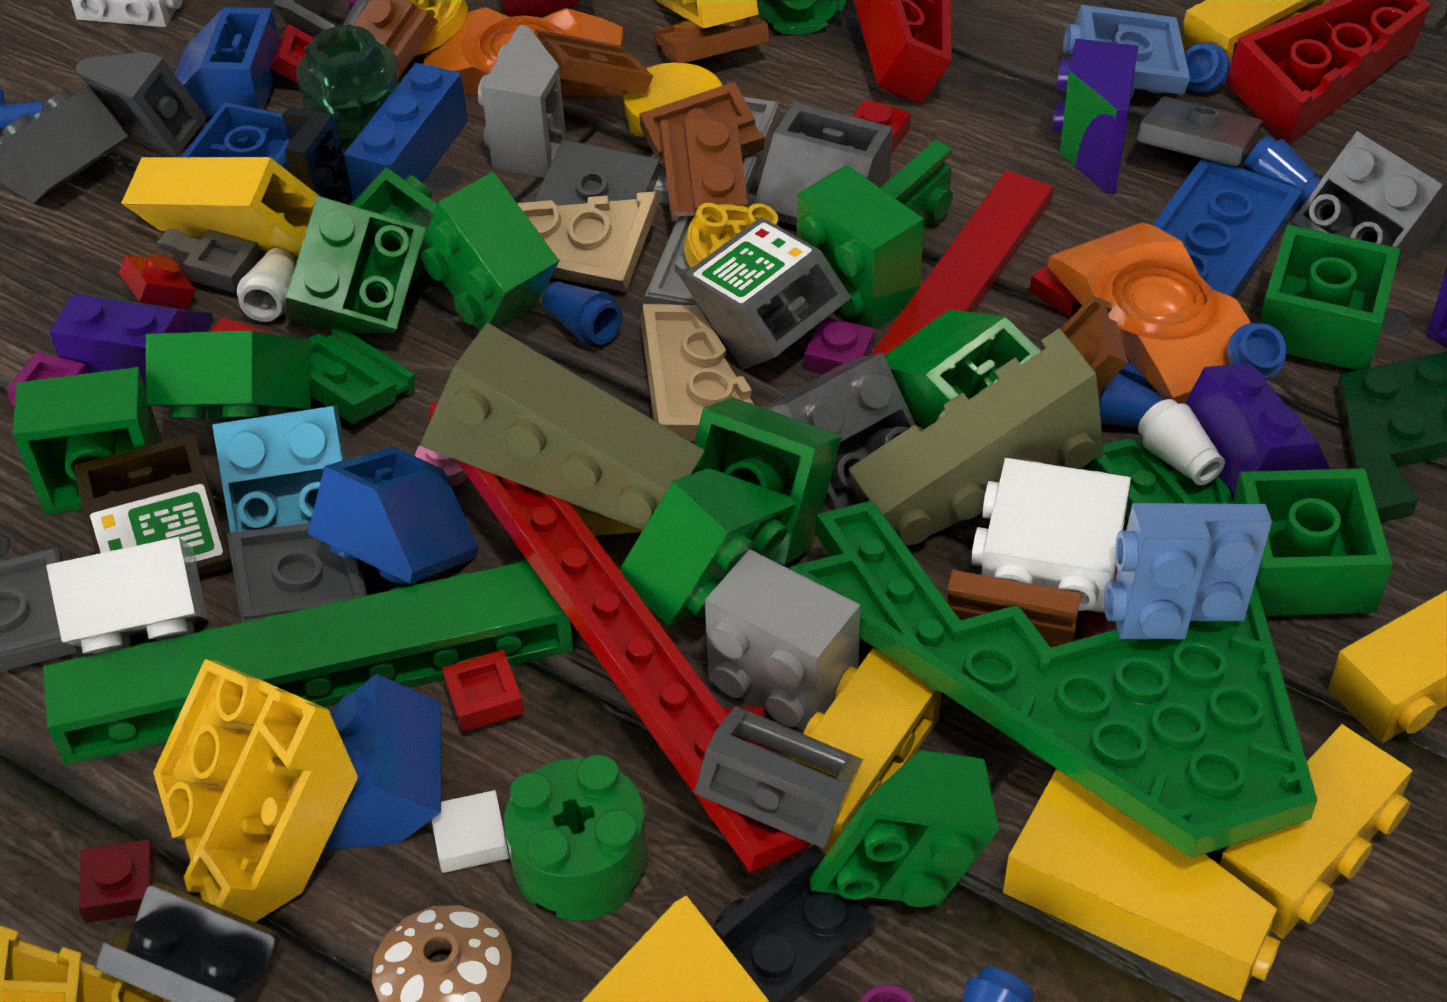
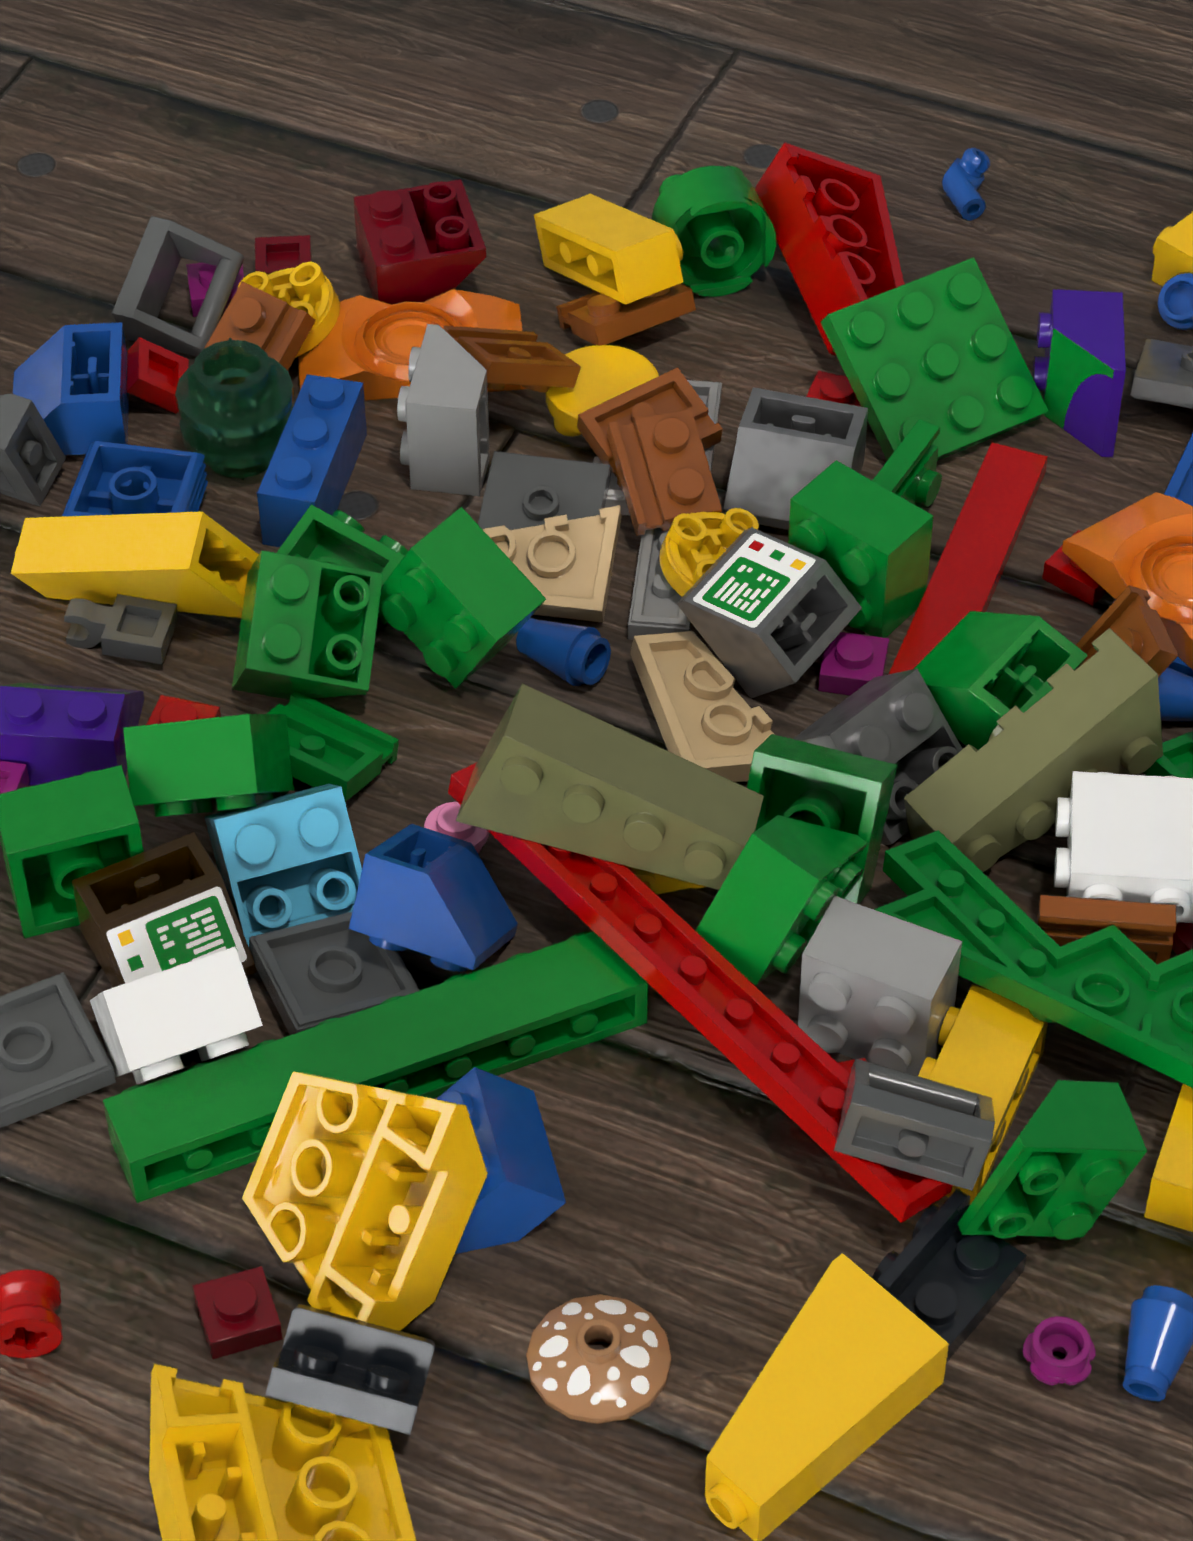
camera: 10 degrees left, 0 degrees up
(157, 280) = (75, 659): red plate -> none
(265, 286) = (203, 654): white cone -> none
(316, 153) = (225, 490): black bracket -> none
(469, 832) = (593, 1220): white tile -> none
(482, 690) = (569, 1074): red plate -> none
(576, 837) = (711, 1210): green brick -> none
(968, 90) = (936, 357): none -> green plate
(1160, 54) = (1106, 269): medium blue plate -> none

